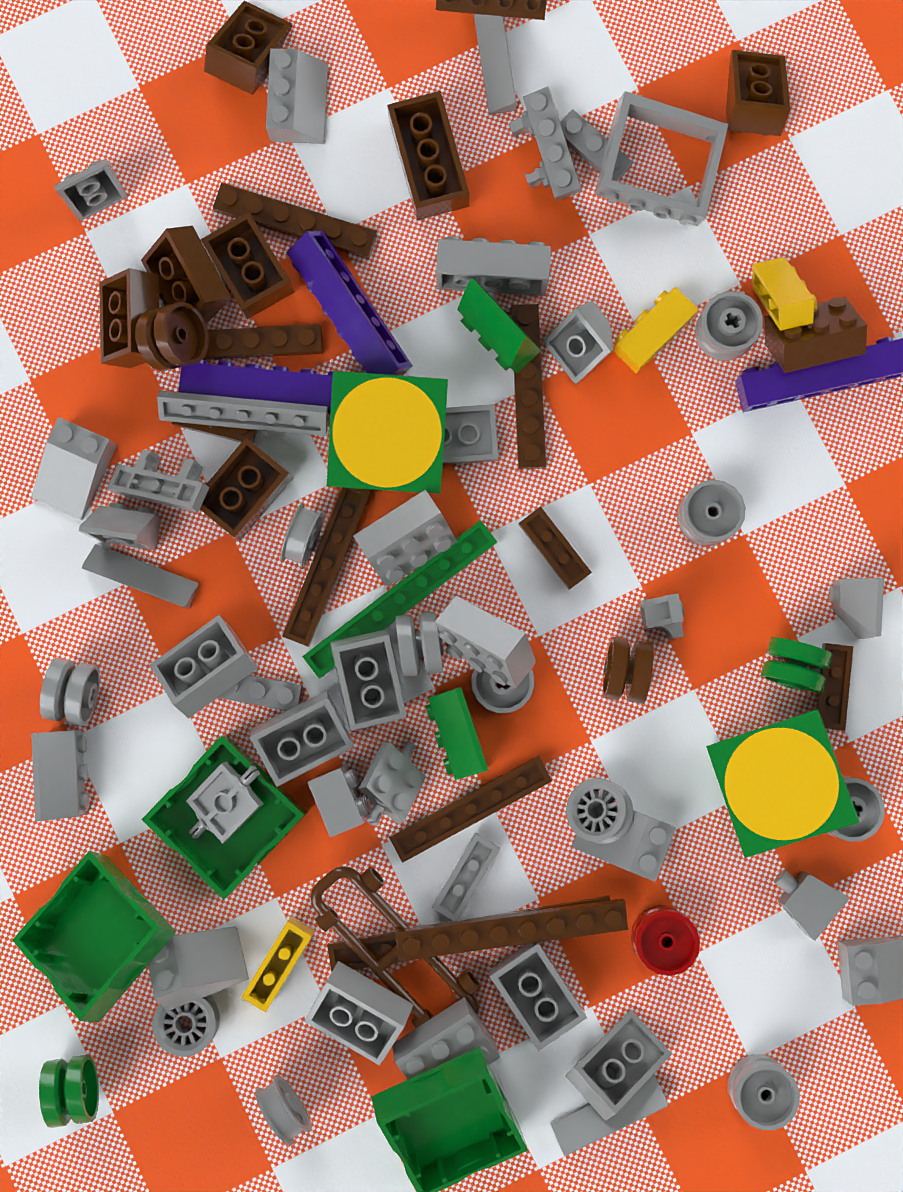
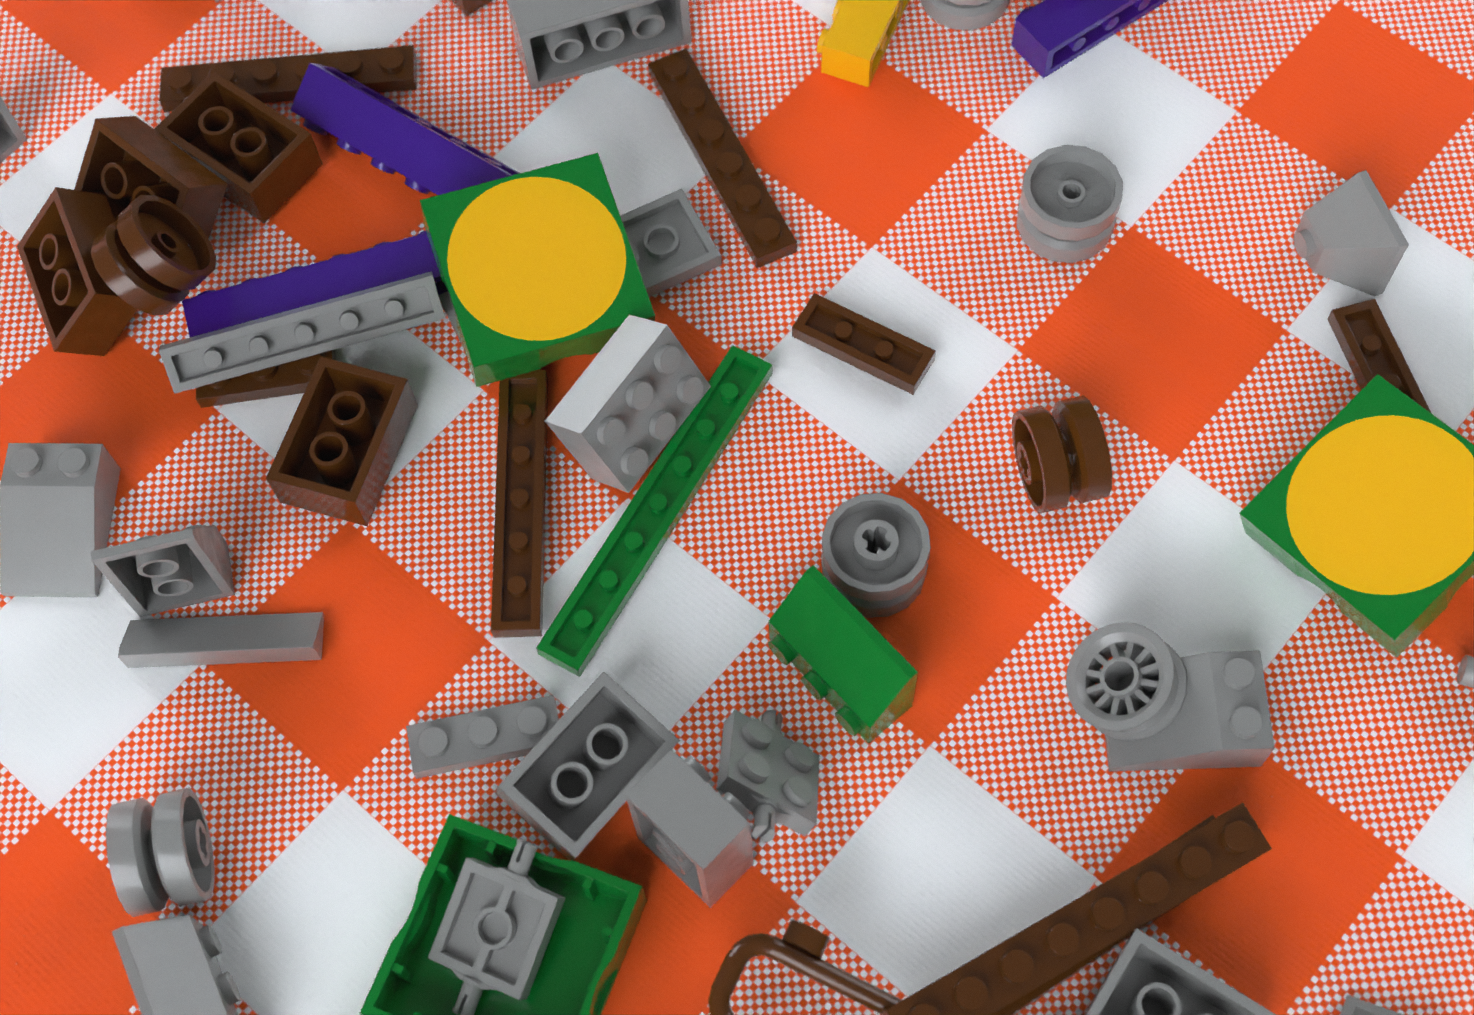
camera: 20 degrees left, 20 degrees down
(146, 484) = (193, 485): light grey hinge -> none
(203, 666) = (378, 719): light grey brick -> none
(264, 342) = (292, 245): reddish brown plate -> none
(302, 535) = (463, 463): light grey wheel -> none
(368, 679) = (658, 628): light grey brick -> none
(419, 644) = (719, 545): light grey wheel -> none
(465, 877) = (960, 887): light grey plate -> none
(470, 809) = (914, 777): reddish brown plate -> none
(485, 642) = (822, 477): light grey brick -> none
(496, 328) = (640, 81): green slope -> none
(581, 341) = (768, 68): light grey slope -> none
(664, 614) = (1074, 365): light grey brick -> none
(678, 952) = (1341, 842): red wheel -> none
(796, 665) = (1308, 346): green wheel -> none

